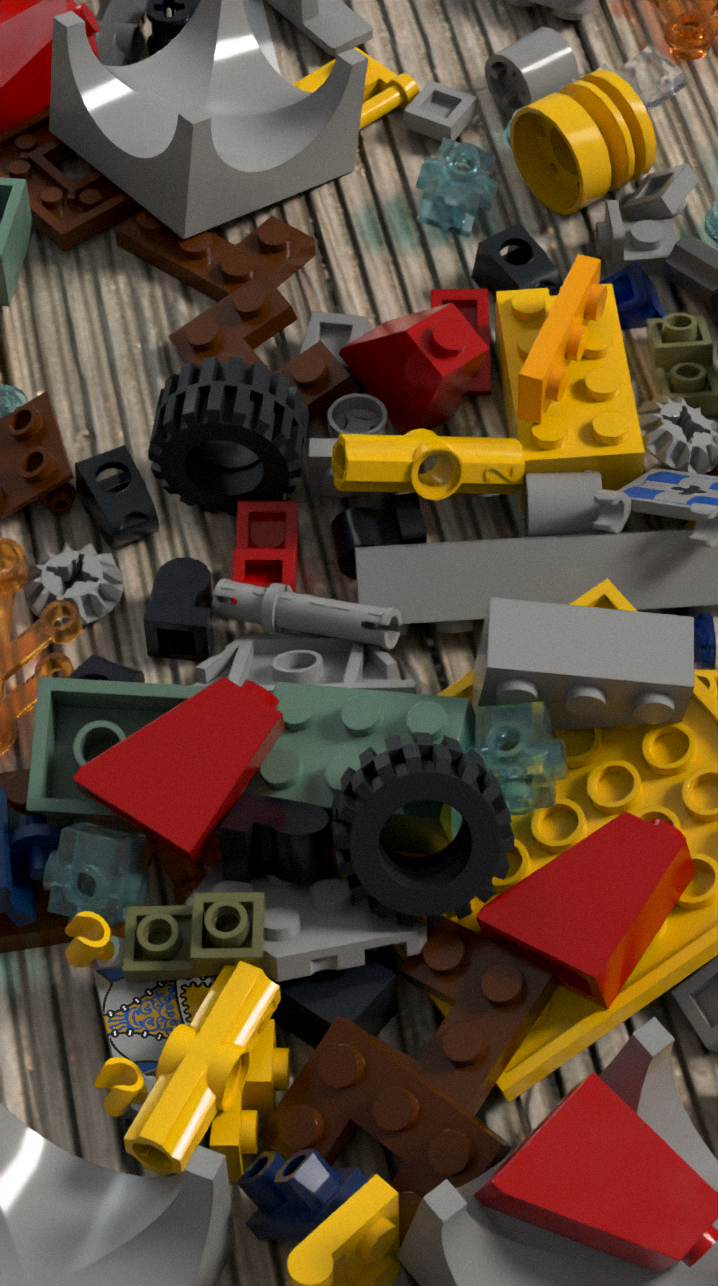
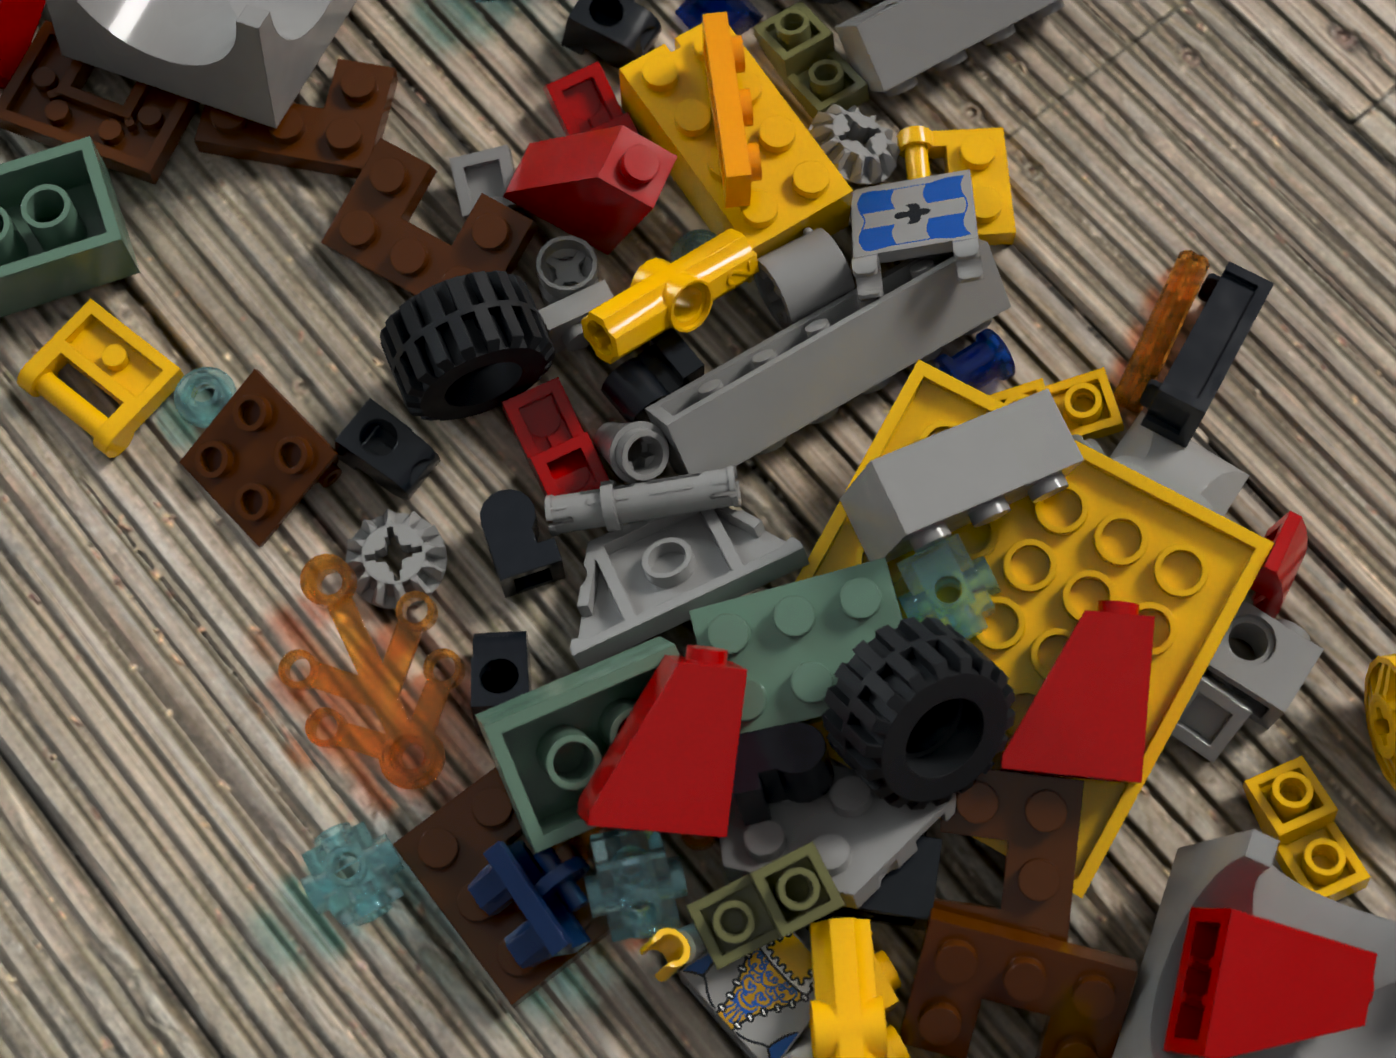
camera: 30 degrees left, 20 degrees up
(340, 566) = (633, 449): none -> light grey cone

